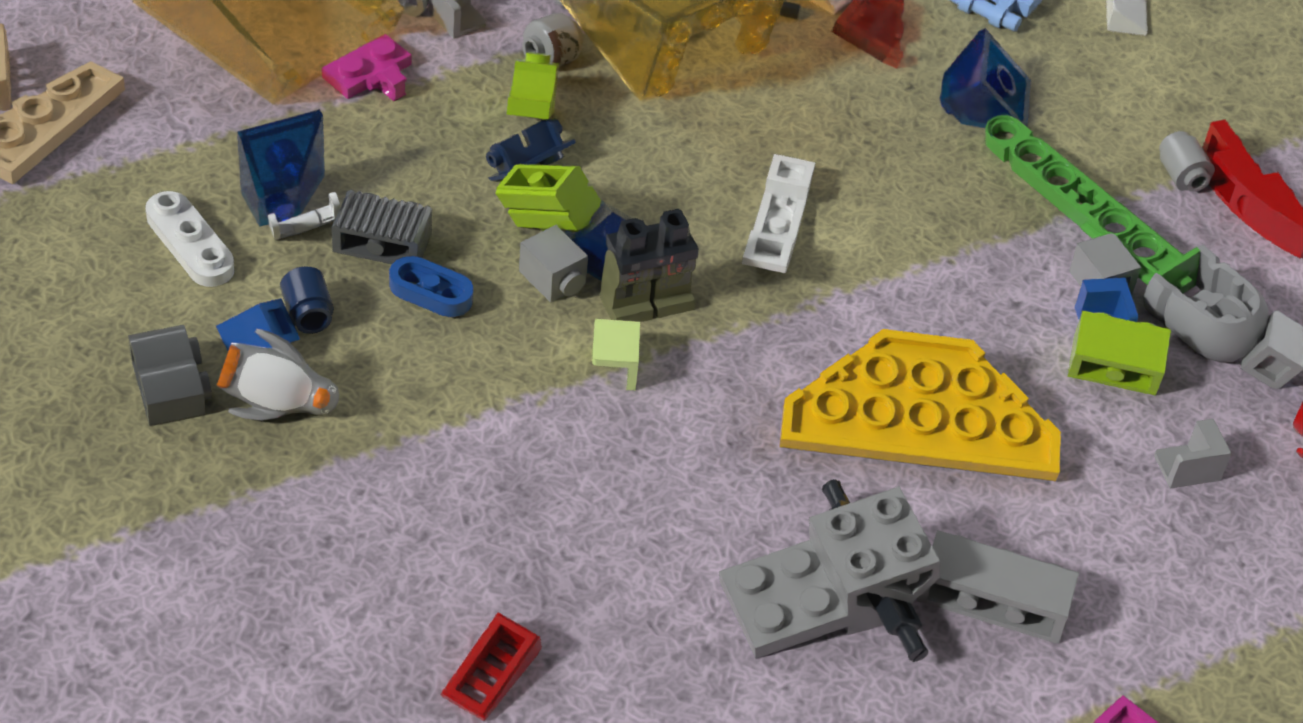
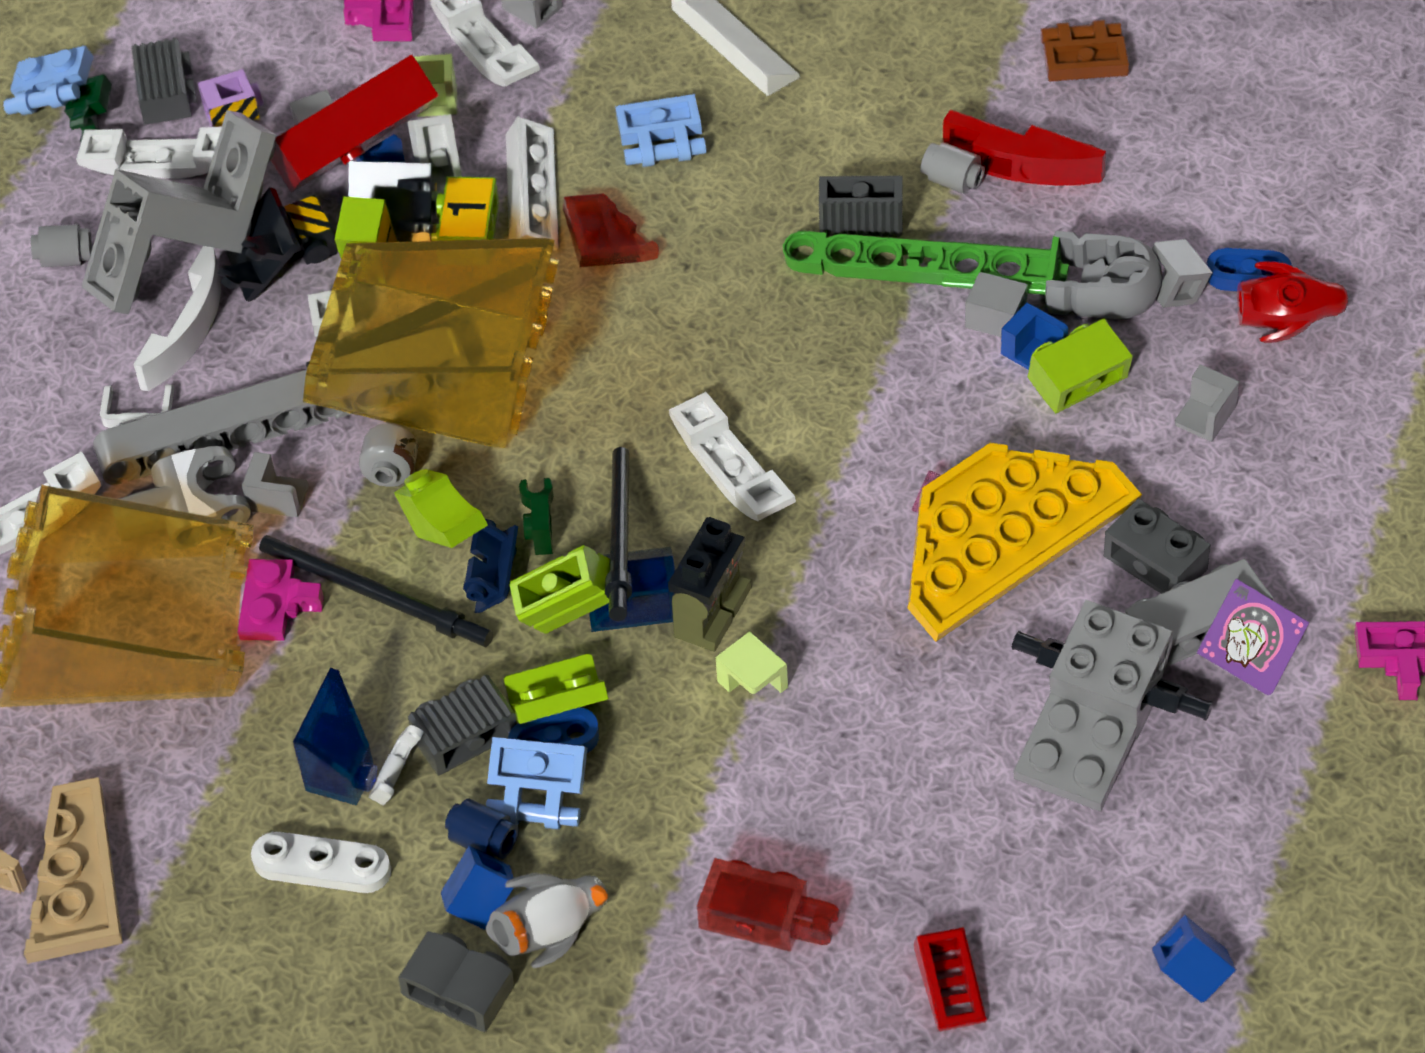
camera: 35 degrees left, 5 degrees up
(388, 288) = (537, 767): none -> light blue plate
(422, 501) = (762, 906): none -> clear red brick
(459, 163) = (446, 621): none -> black bar
(469, 255) = (554, 688): none -> lime bracket
(553, 264) = (623, 643): light grey brick -> none
(583, 213) = (618, 581): none -> black bar
(599, 151) = (538, 523): none -> dark green plate
(985, 84) = (748, 221): clear blue slope -> none
(1020, 634) = (1252, 637): none -> sticker
(1024, 513) = (1155, 547): none -> dark grey brick
(1080, 132) = (861, 205): none -> dark grey brick

